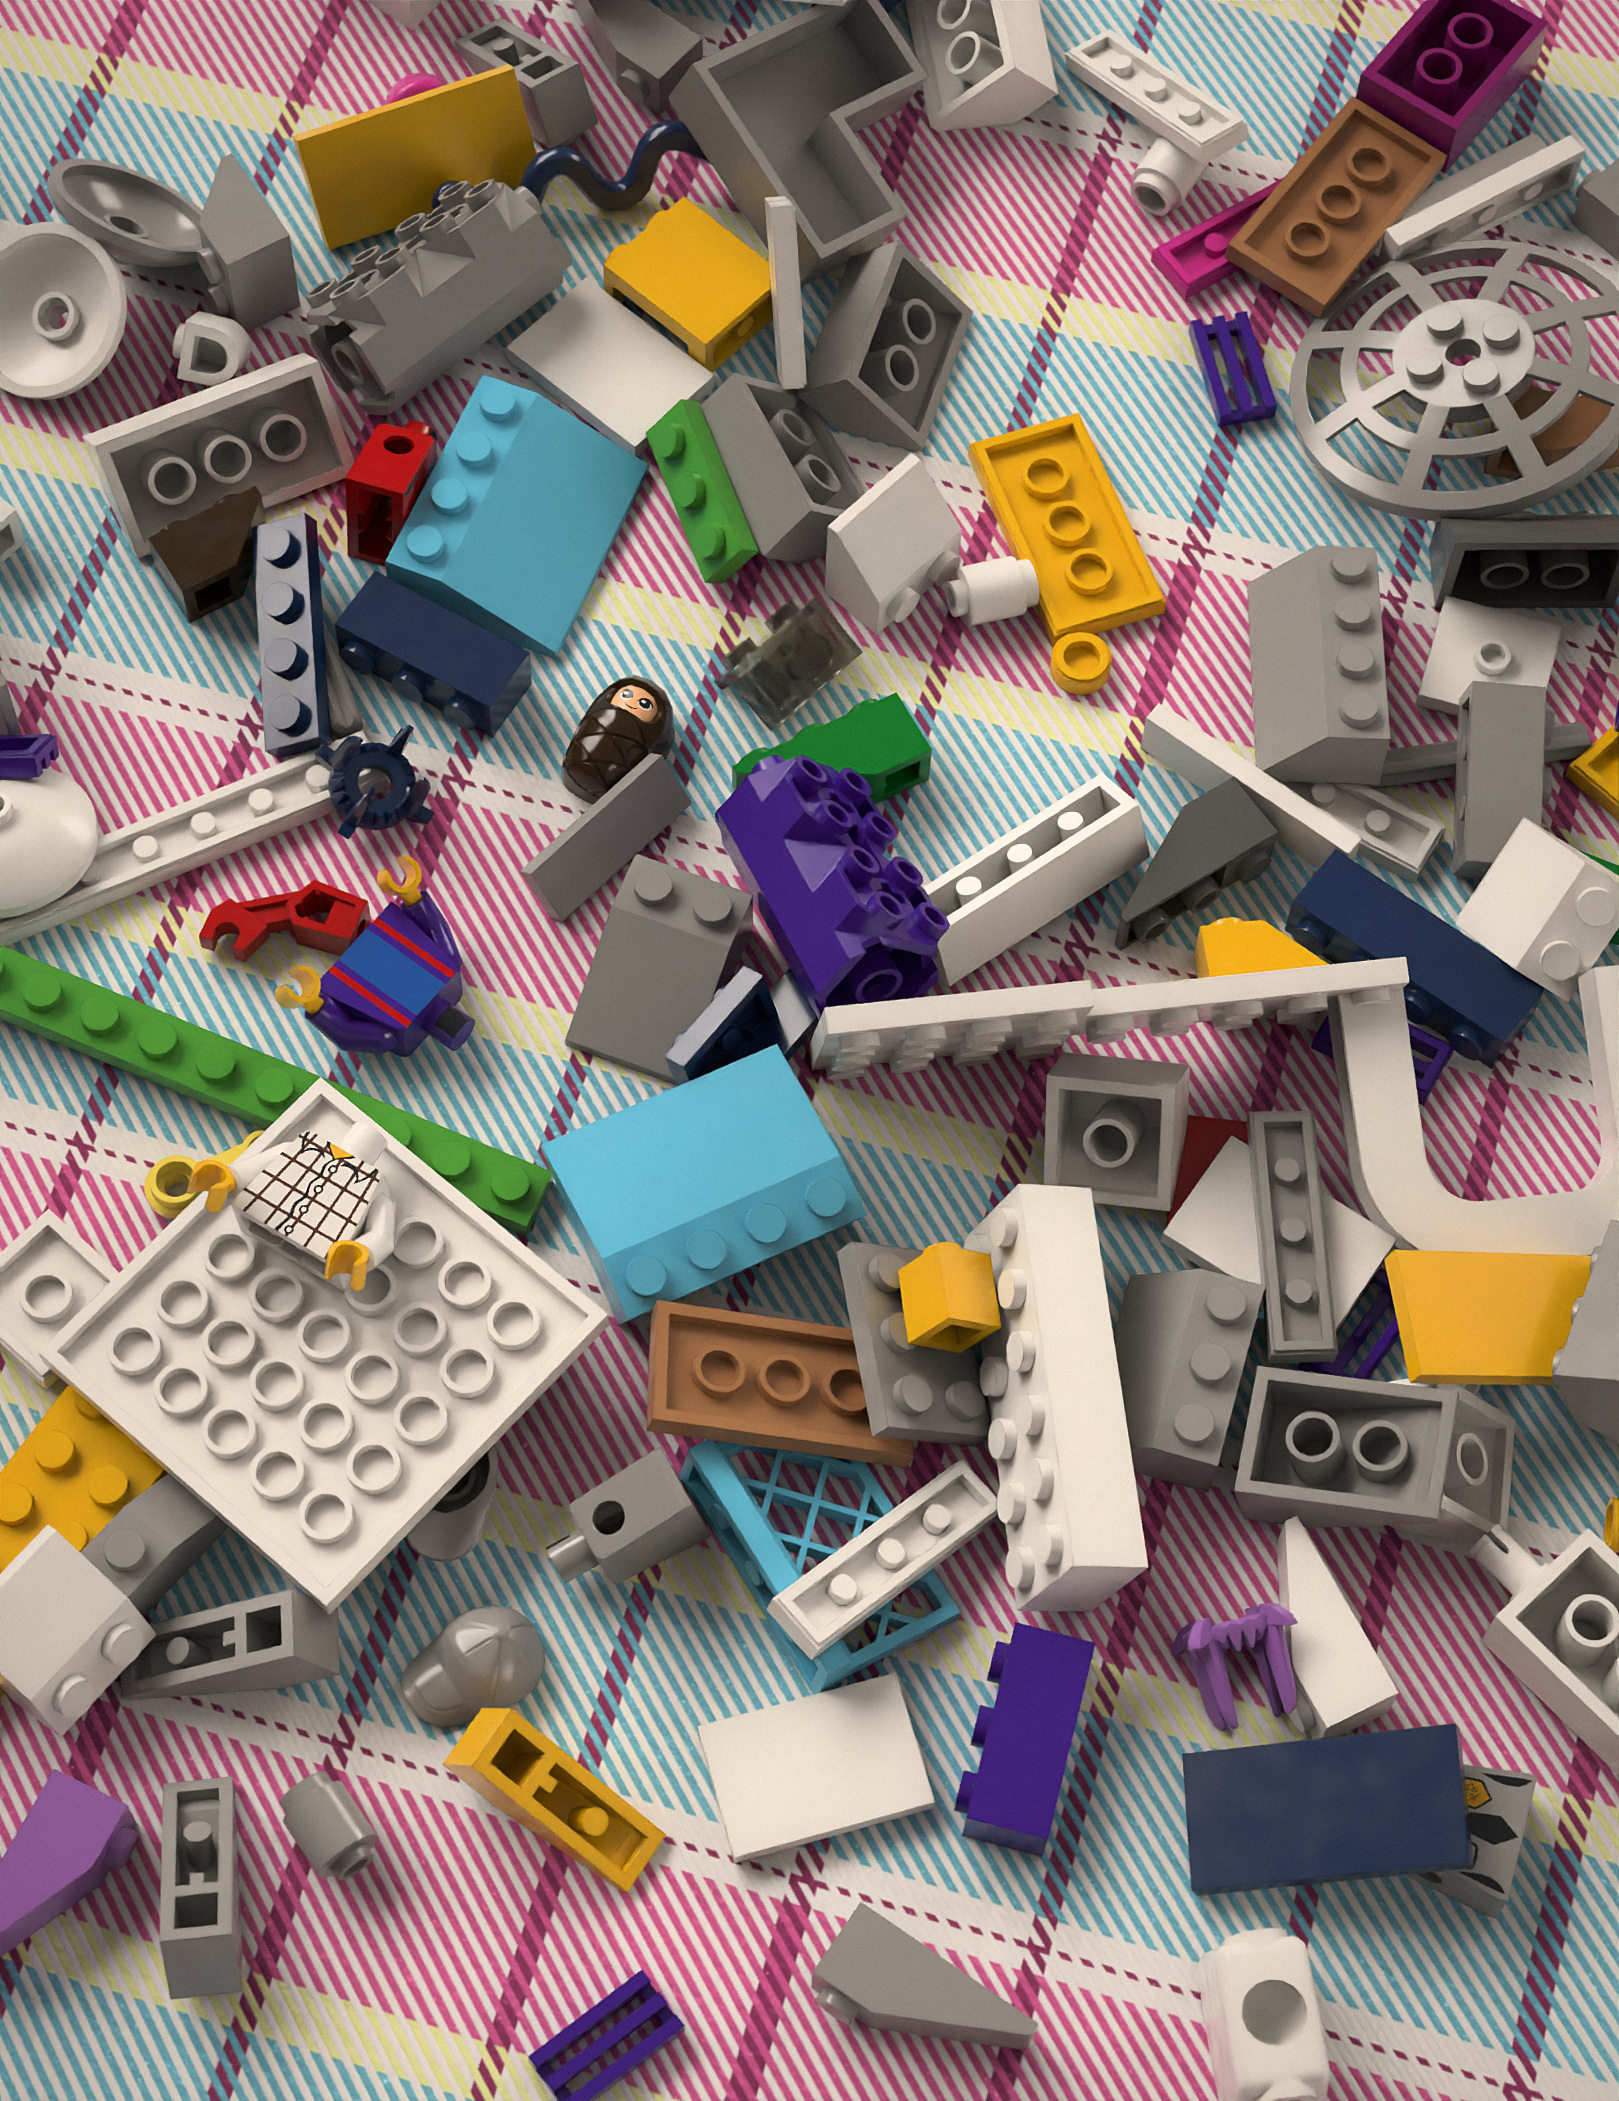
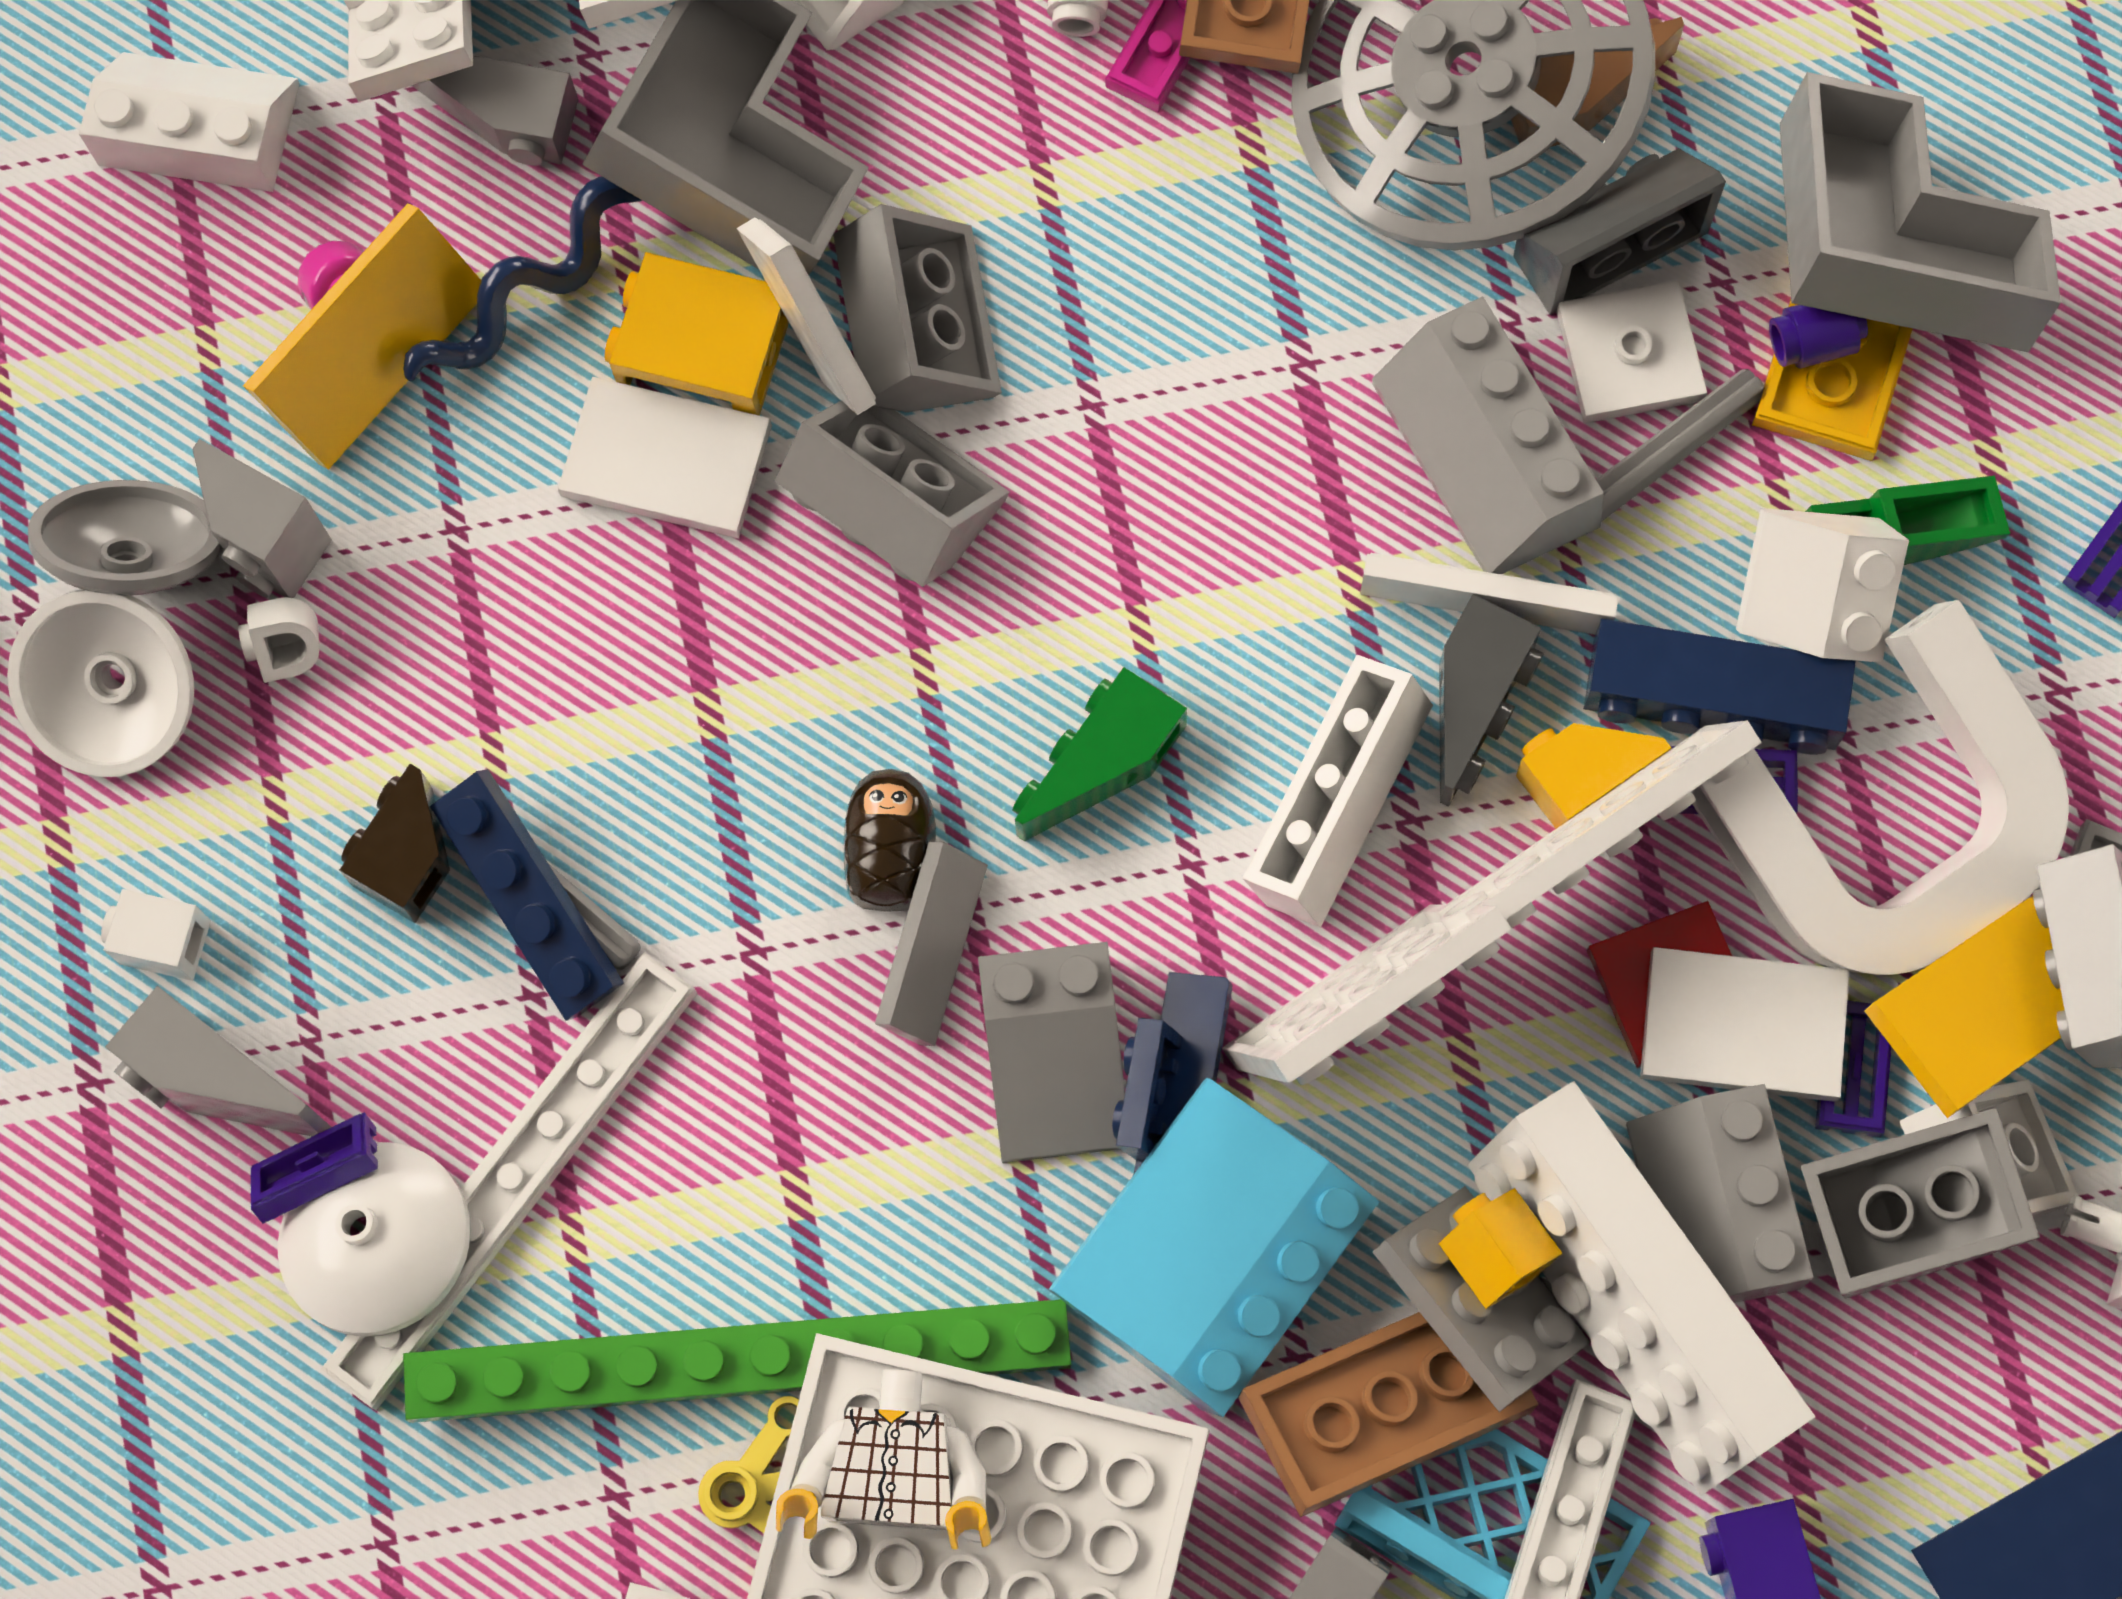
camera: 20 degrees left, 10 degrees up
(251, 431) = (354, 722): white slope -> none
(258, 917) = (655, 1191): red piece -> none
(361, 809) = (692, 971): dark blue piece -> none
(390, 466) = (539, 698): red torso -> none
(392, 981) = (817, 1192): torso -> none
(433, 654) = (668, 844): dark blue brick -> none
(436, 294) = (474, 464): light grey brick -> none
(517, 517) = (668, 664): medium azure slope -> none
(548, 80) = (448, 193): light grey slope -> none
(701, 492) = (827, 548): bright green plate -> none
(789, 662) = (999, 678): clear smoke bracket -> none
(819, 877) = (1196, 918): dark purple brick -> none
(891, 547) = (1040, 520): white slope -> none
(992, 590) = (1147, 509): white brick -> none
(1070, 526) = (1177, 407): yellow tile -> none
(1080, 663) = (1263, 539): yellow tile -> none
(1116, 1128) = (1550, 996): white slope -> none
(1223, 331) = (1211, 129): dark purple tile -> none
(1259, 1630) = (1914, 1411): medium lavender piece -> none
(1291, 1237) = (1759, 1019): light grey tile -> none
(1330, 1656) = (1984, 1392): white slope -> none
(1388, 830) = (1615, 563): white tile -> none
(1498, 770) = (1706, 467): light grey brick -> none

